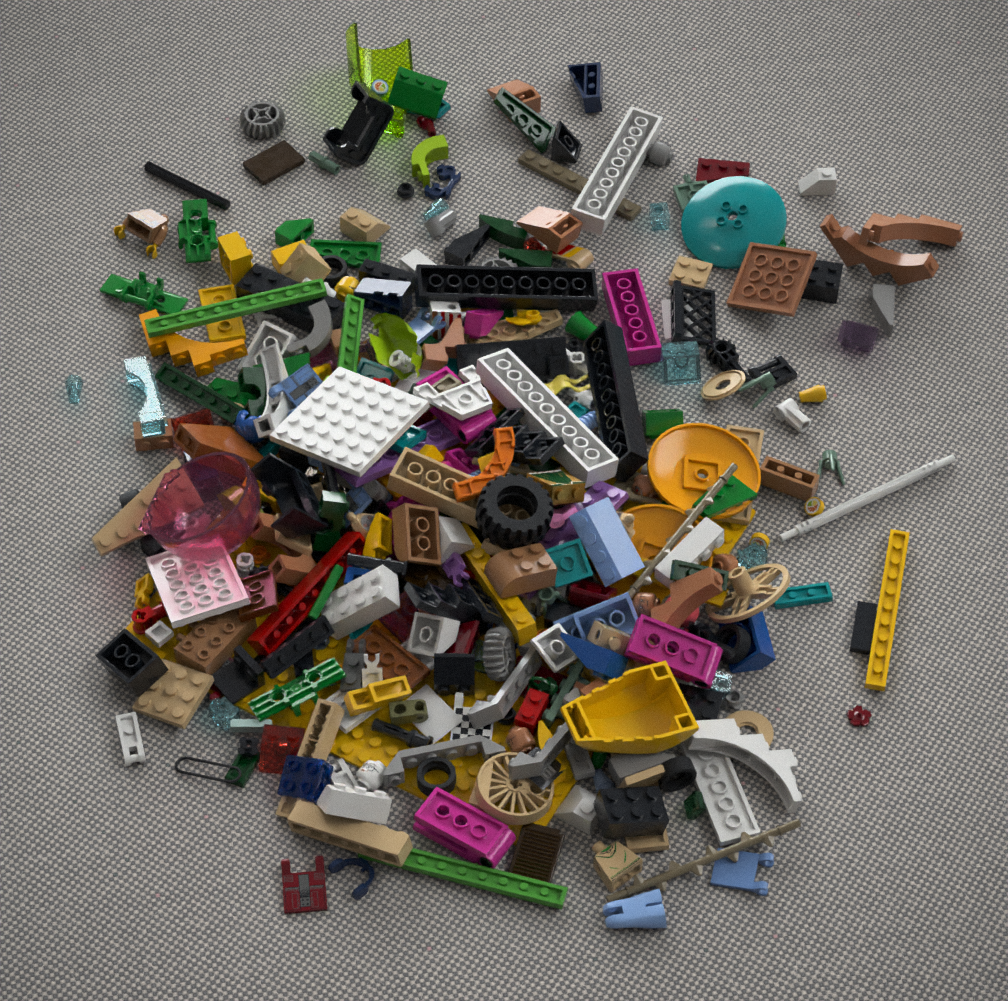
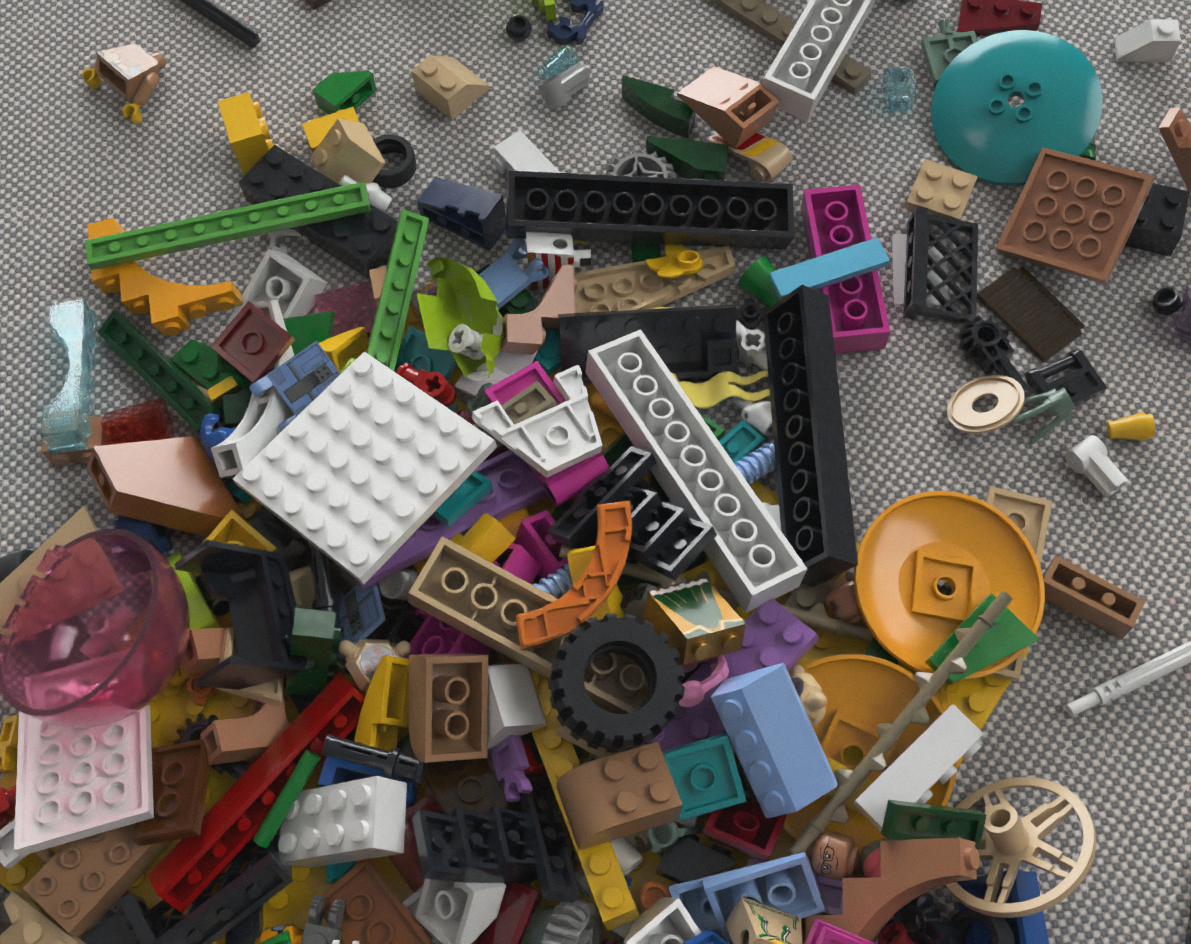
camera: 10 degrees right, 15 degrees up
(143, 293) = (83, 175): green piece -> none
(197, 246) = (190, 83): green piece -> none
(223, 330) = (212, 197): yellow tile -> none
(242, 567) = (185, 708): white bush -> none
(250, 395) = (225, 387): none -> yellow tile
(266, 367) = (253, 342): none -> dark red plate
(320, 335) = (353, 277): light grey arch -> none
(346, 286) = (407, 192): yellow head -> none
(351, 251) = (427, 131): green wing -> none
(378, 270) = (467, 171): black arch -> none
(466, 247) = (598, 129): black slope -> none
(481, 321) = (606, 266): dark pink slope -> none
(533, 244) = (701, 132): clear red bush -> none
(623, 313) = (830, 267): none -> medium azure tile
(658, 421) = (883, 466): green slope -> none
(680, 363) = (918, 356): clear light blue slope -> none
(725, 562) = (976, 772): nougat head -> none
(750, 338) = (1031, 312): none -> dark brown window
(752, 556) = (1013, 757): clear light blue brick -> none
(759, 539) = (1034, 717): tile -> none
(804, 595) = (1112, 831): teal tile -> none
(814, 506) = (1129, 652): tile -> none
(830, 461) = (1158, 561): sand green plant -> none
(833, 326) = (1167, 301): none -> black plate

